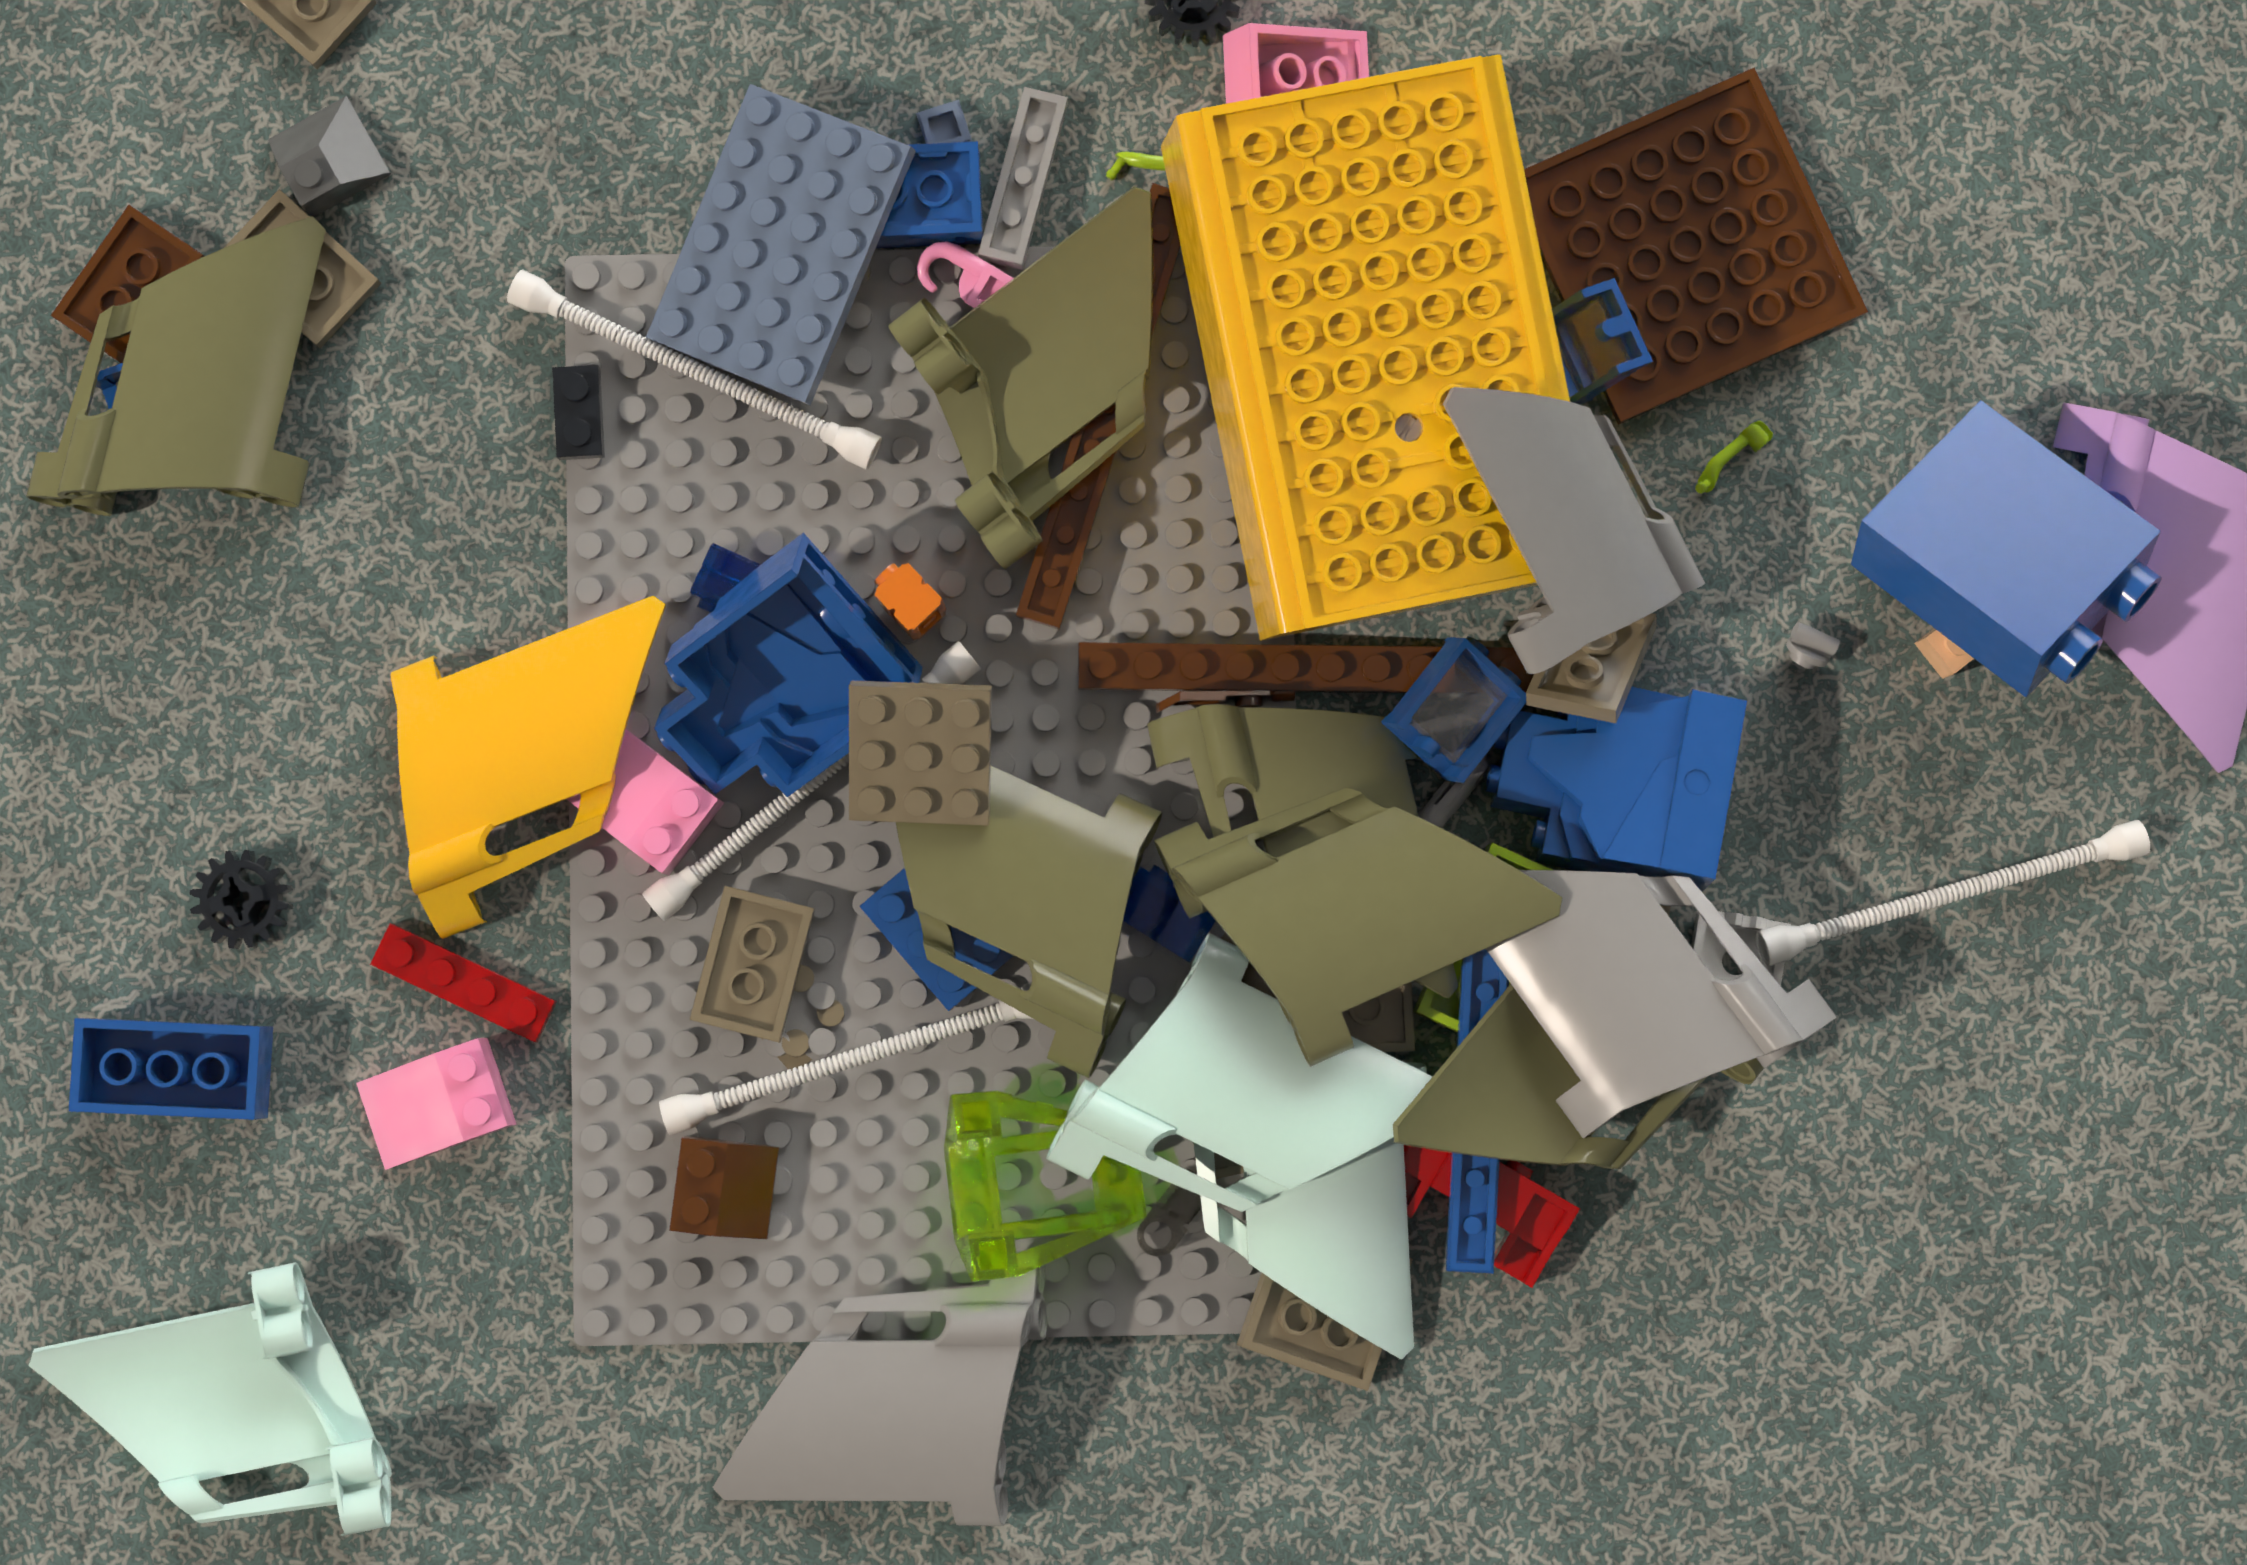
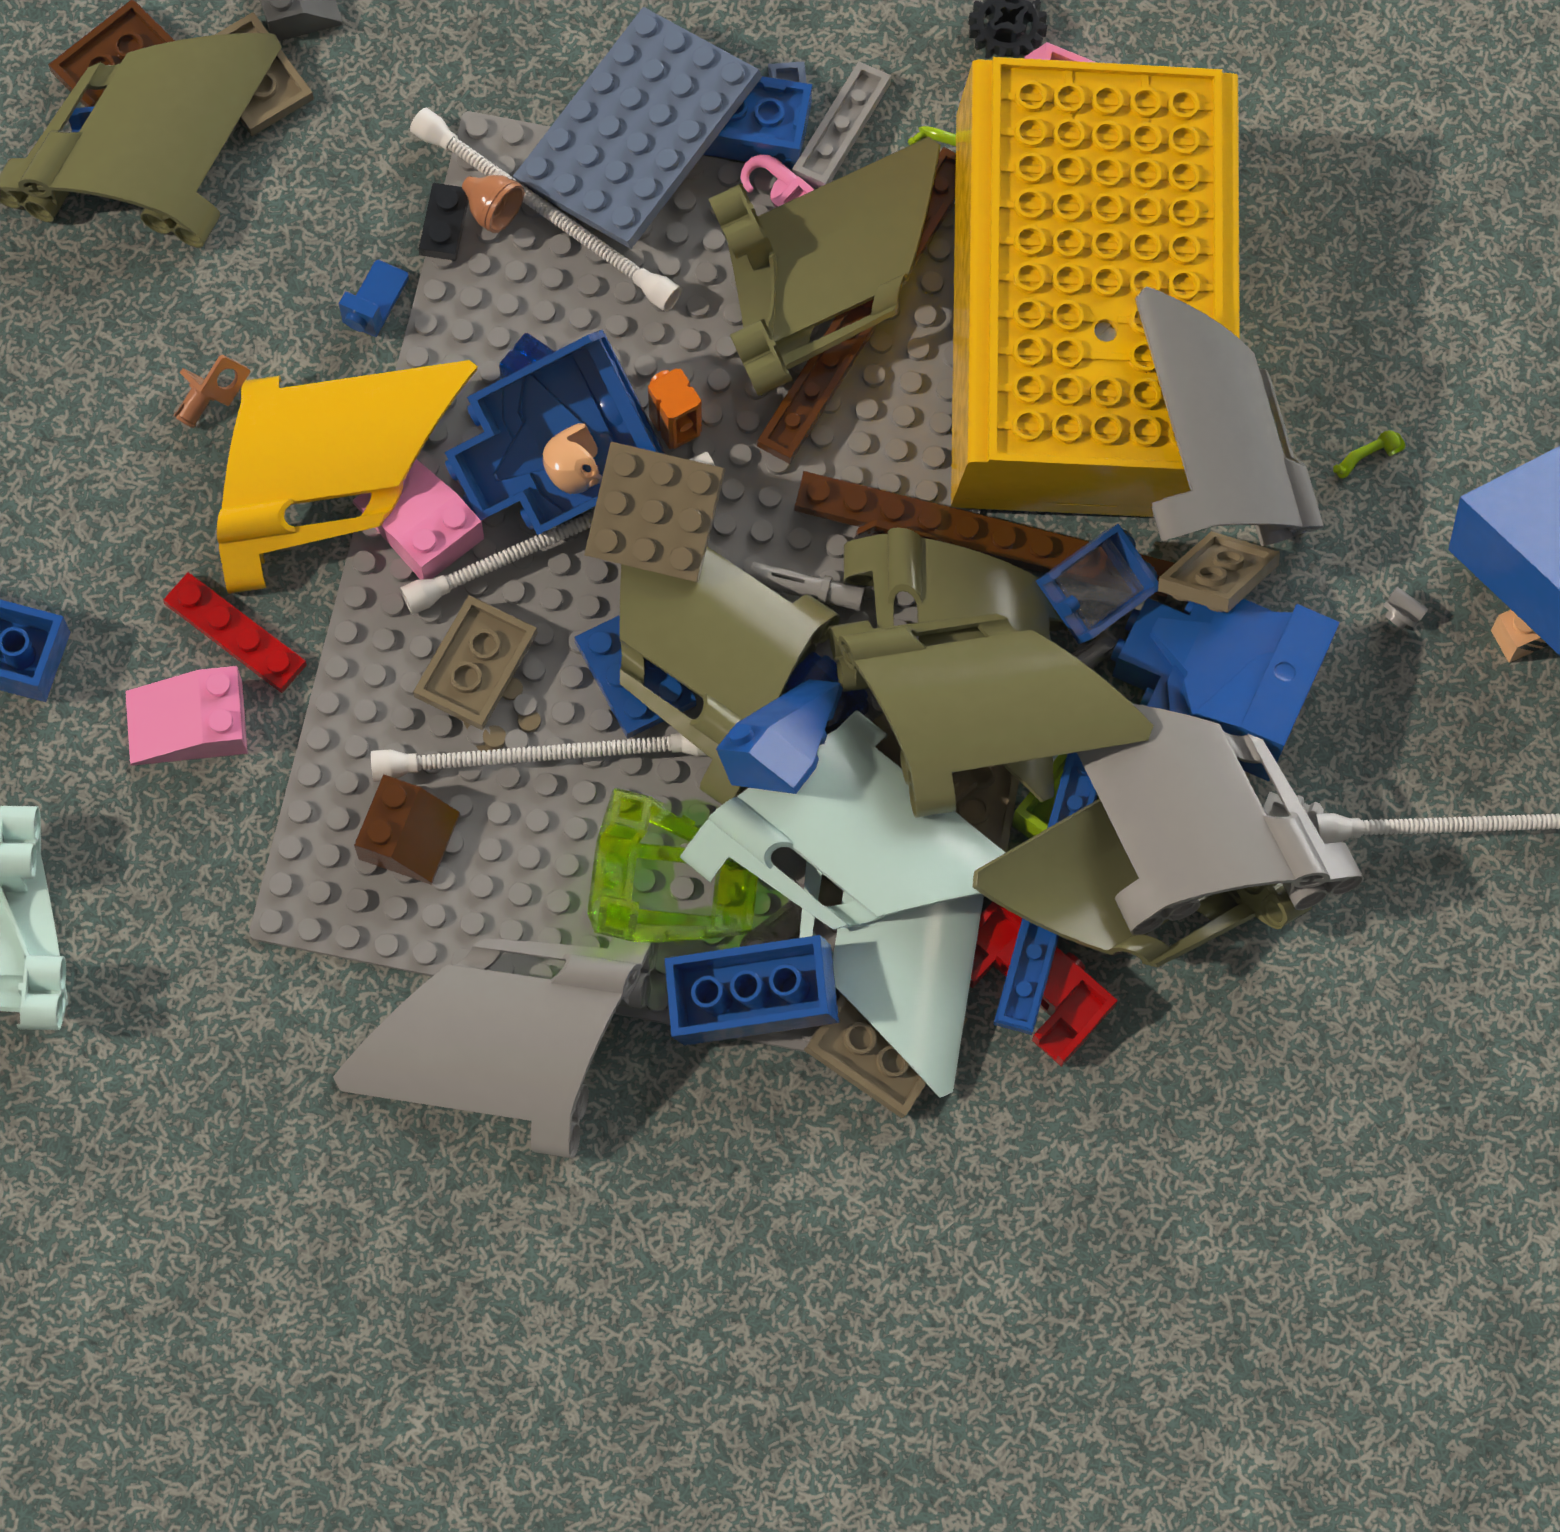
camera: 10 degrees right, 15 degrees down
(247, 916) = (59, 518): black gear -> none
(351, 695) = (207, 389): none -> nougat bracket
(519, 528) = (374, 299): none -> blue bracket
(630, 377) = (493, 200): none -> nougat helmet
(798, 702) = (565, 459): none -> light nougat helmet
(1128, 781) = (799, 584): none -> light grey pin
(1133, 1012) = (781, 740): none -> blue wedge
(1164, 1300) = (751, 990): none -> blue brick
(1597, 340) = (1275, 324): window -> none
(1703, 234) = (1364, 289): reddish brown plate -> none

